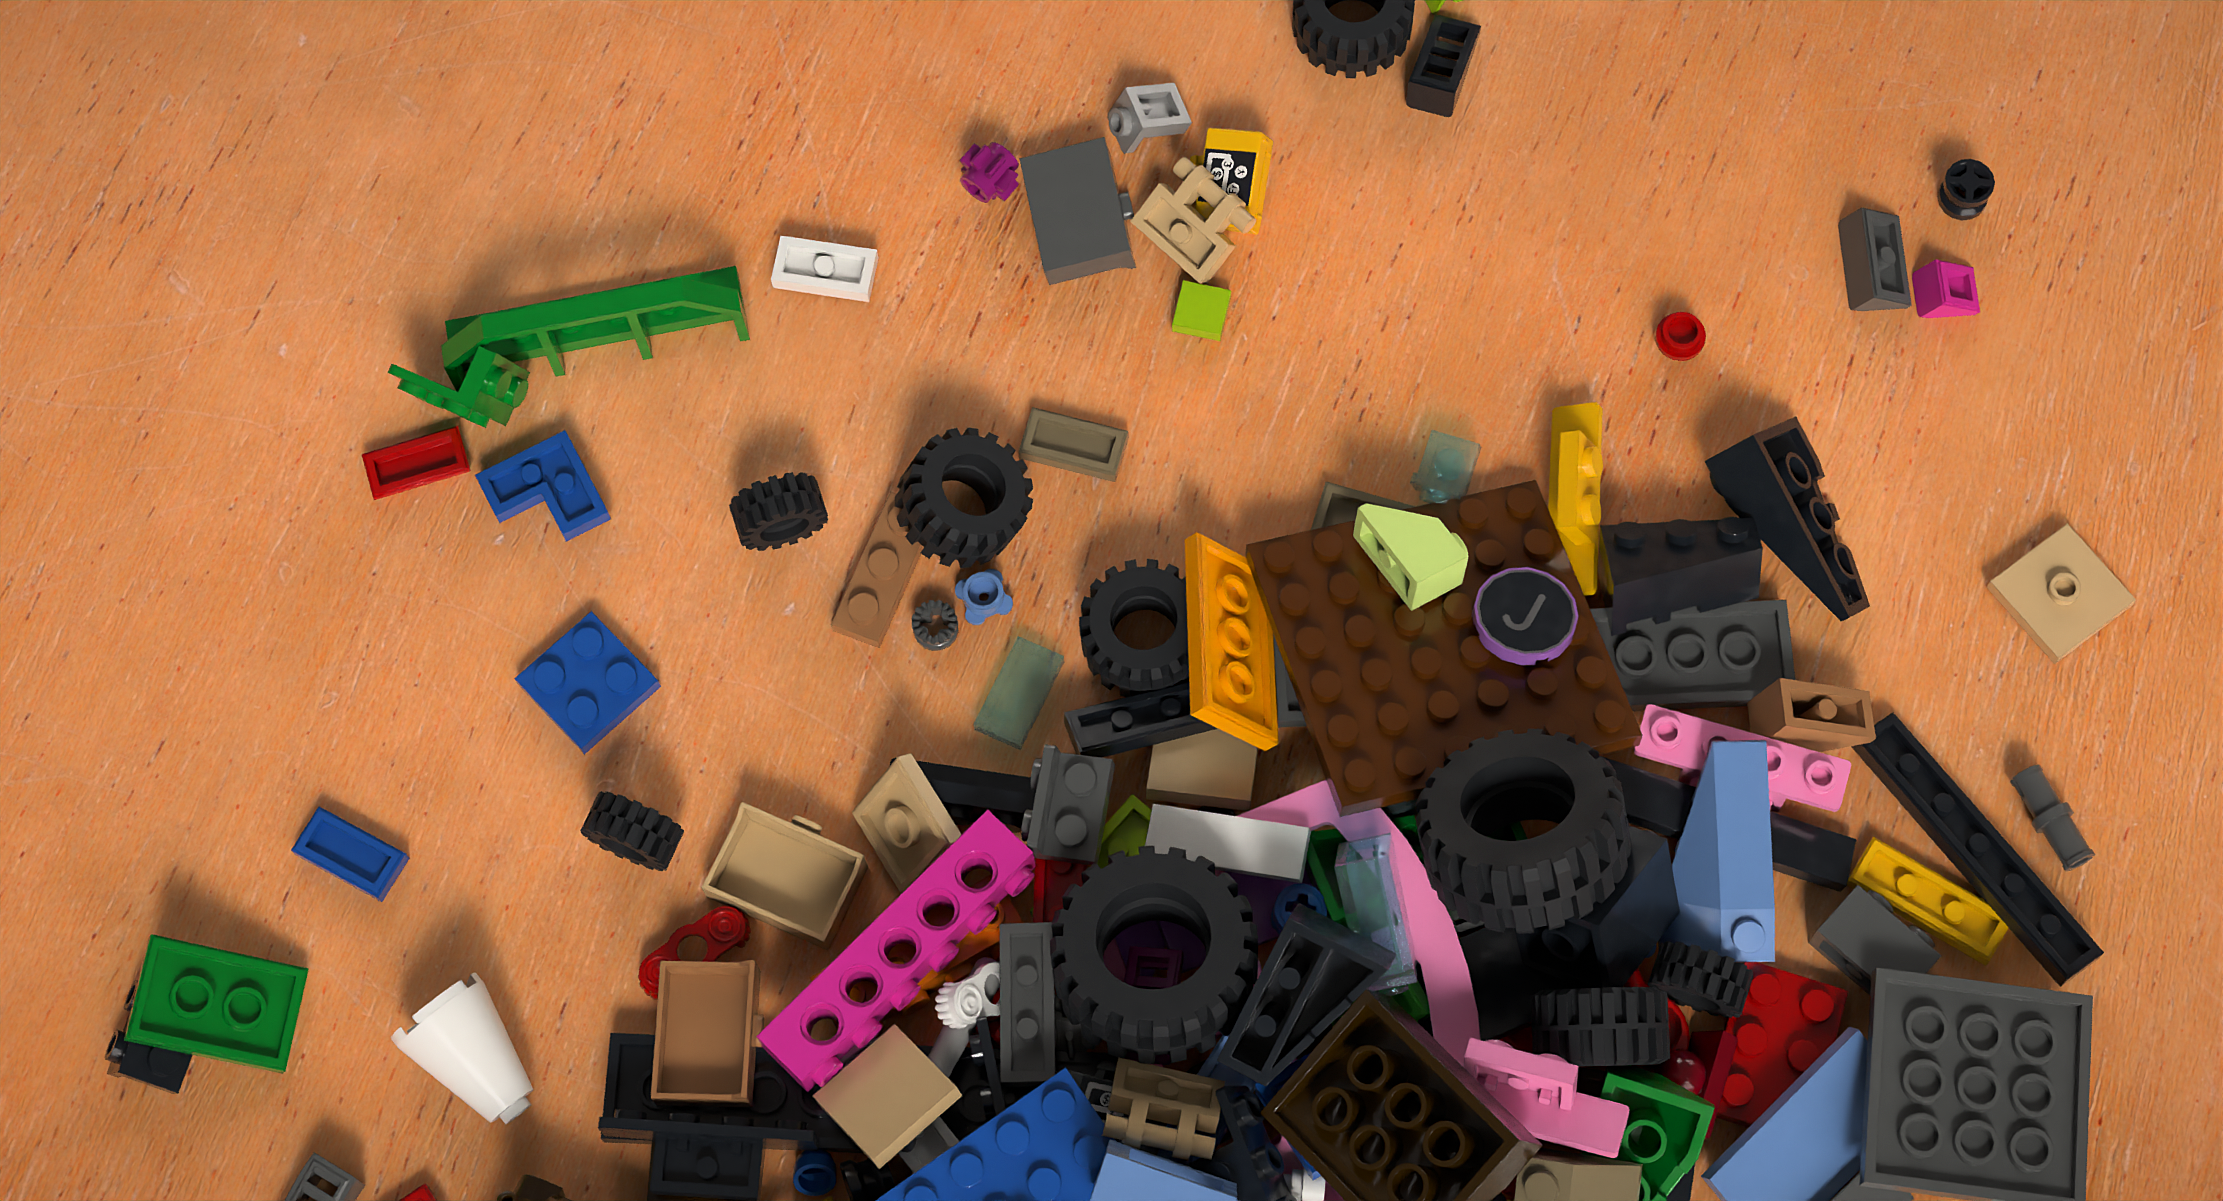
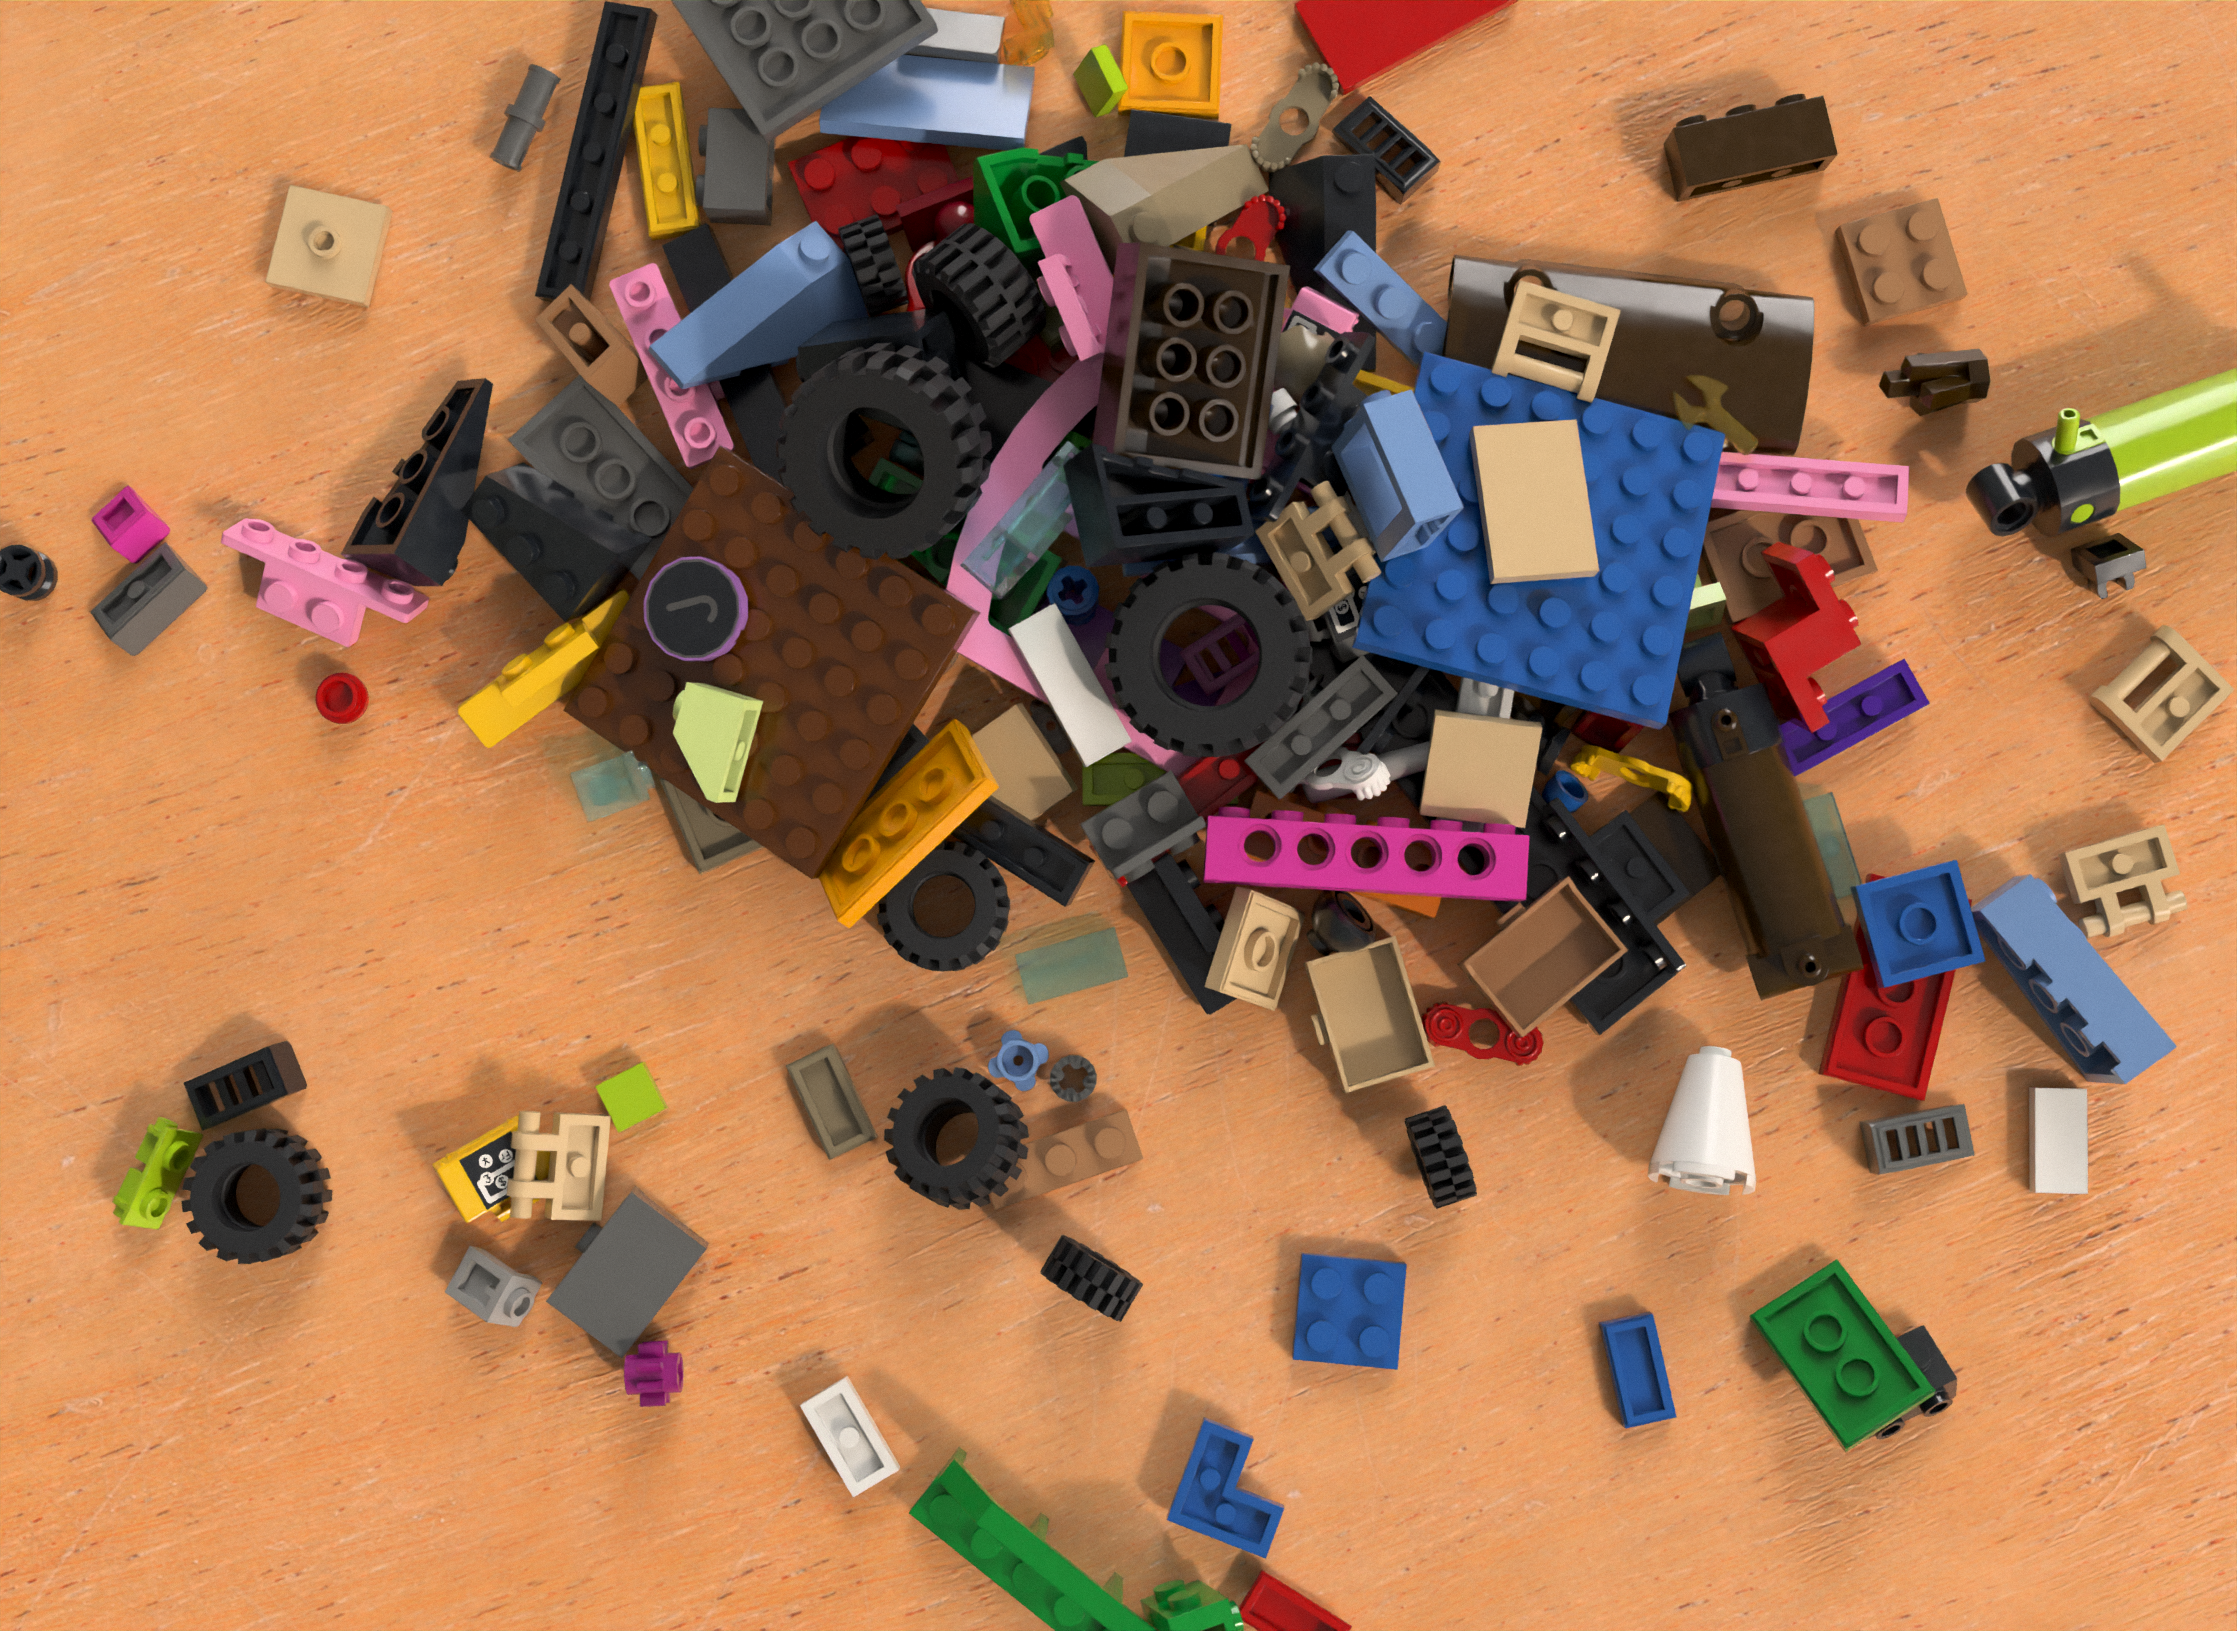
camera: 130 degrees left, 15 degrees up
(862, 906) = (1340, 924): none -> black brick
(1783, 384) = (317, 587): none -> bright pink bracket

